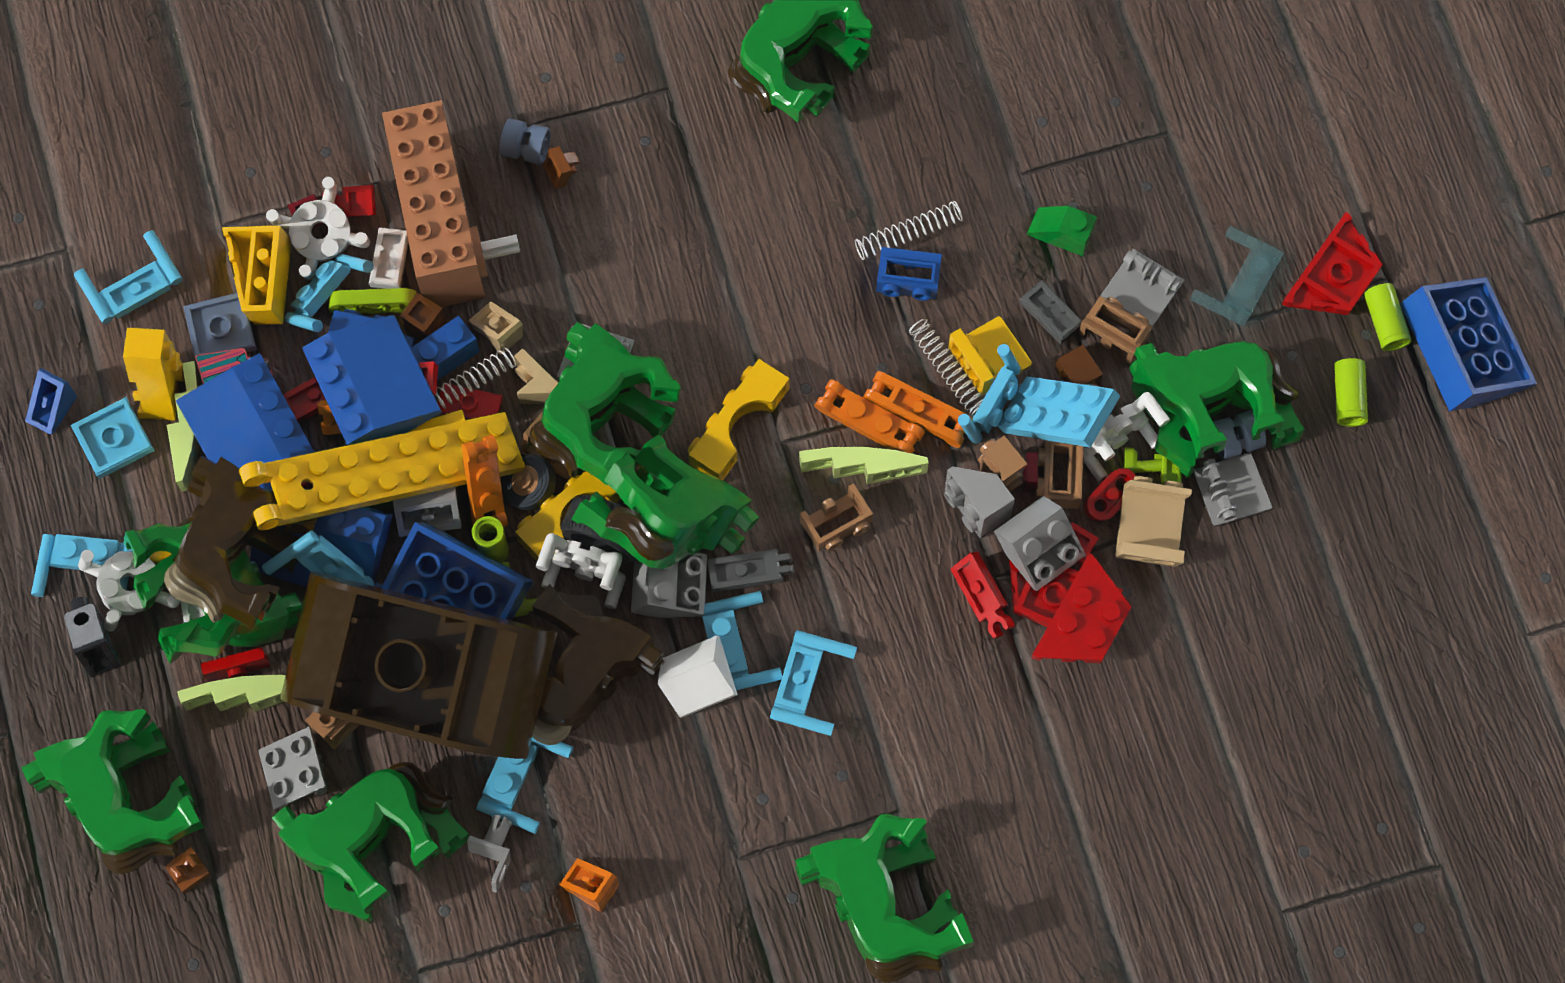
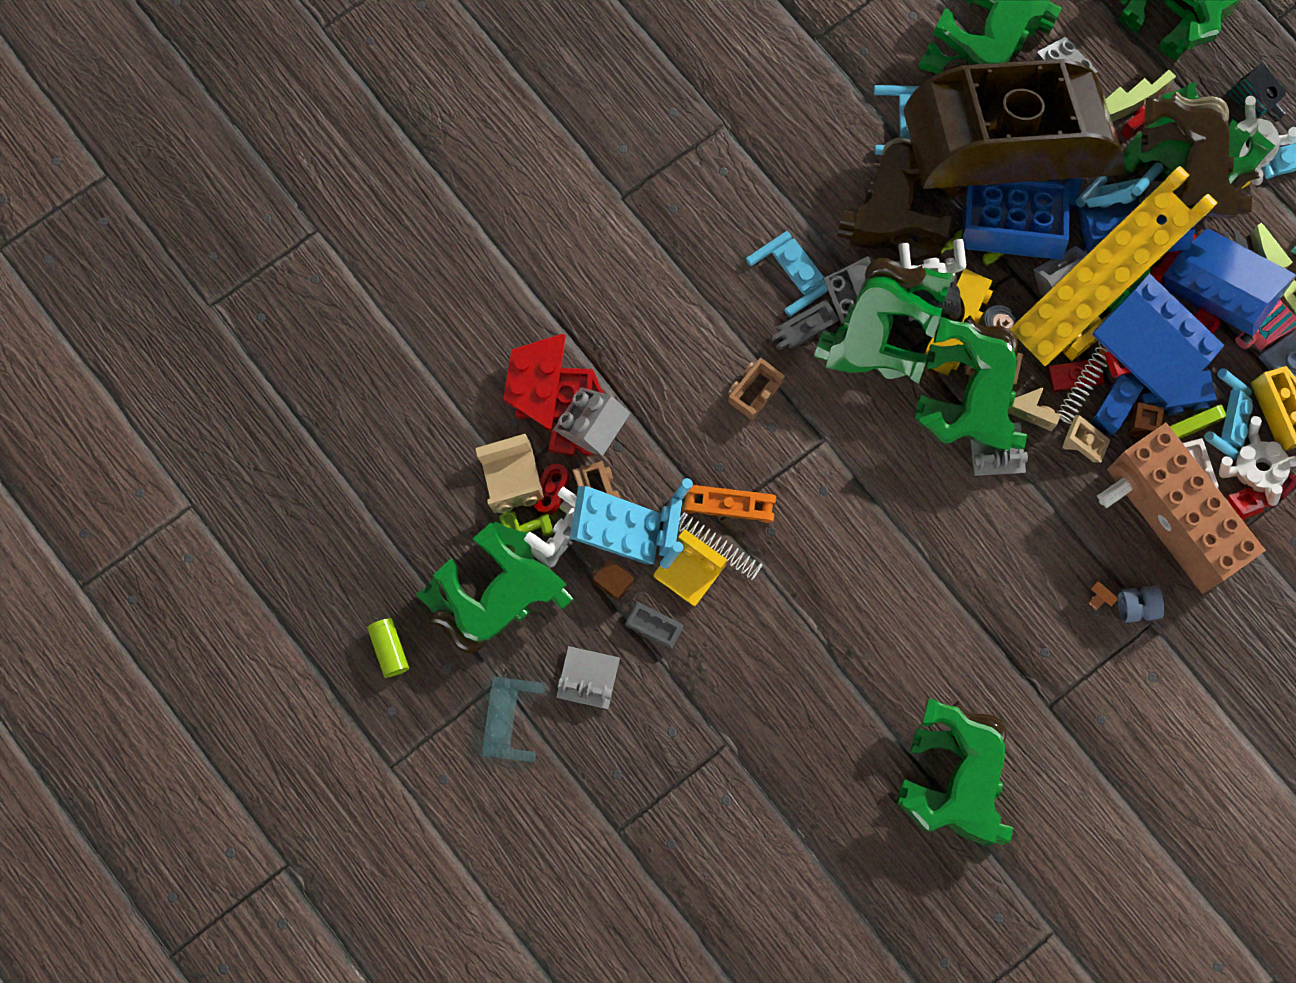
camera: 155 degrees right, 5 degrees up
(484, 479) = (1031, 297): orange plate -> none
(490, 538) = (1007, 266): lime pin -> none
(492, 848) = (899, 61): light grey bracket -> none
(590, 884) = (819, 62): orange slope -> none
(697, 677) = (810, 231): white slope -> none
(760, 391) = (869, 407): yellow arch -> none
(800, 678) = (732, 259): medium azure plate -> none
(859, 877) = (624, 122): green piece -> none
(868, 418) = (764, 481): orange plate -> none
(874, 462) = (744, 443): yellowish green slope -> none
(900, 285) = (784, 621): blue window -> none
(920, 220) = (765, 682): white piece -> none
(980, 499) = (651, 439): light grey slope -> none
(982, 593) = (621, 373): red plate -> none
(1004, 460) = (644, 470): medium nougat window -> none
(1030, 472) = (621, 483): dark red tile -> none
(1063, 227) = (673, 702): green slope -> none
(1112, 336) = (604, 644): medium nougat window -> none
(1231, 489) = (454, 531): light grey hinge -> none
(1242, 425) = (477, 571): sand blue wheel -> none
(1336, 273) = (431, 752): red wing -> none
(1387, 317) = (377, 725): lime pin -> none
(1467, 342) = (304, 729): blue slope -> none

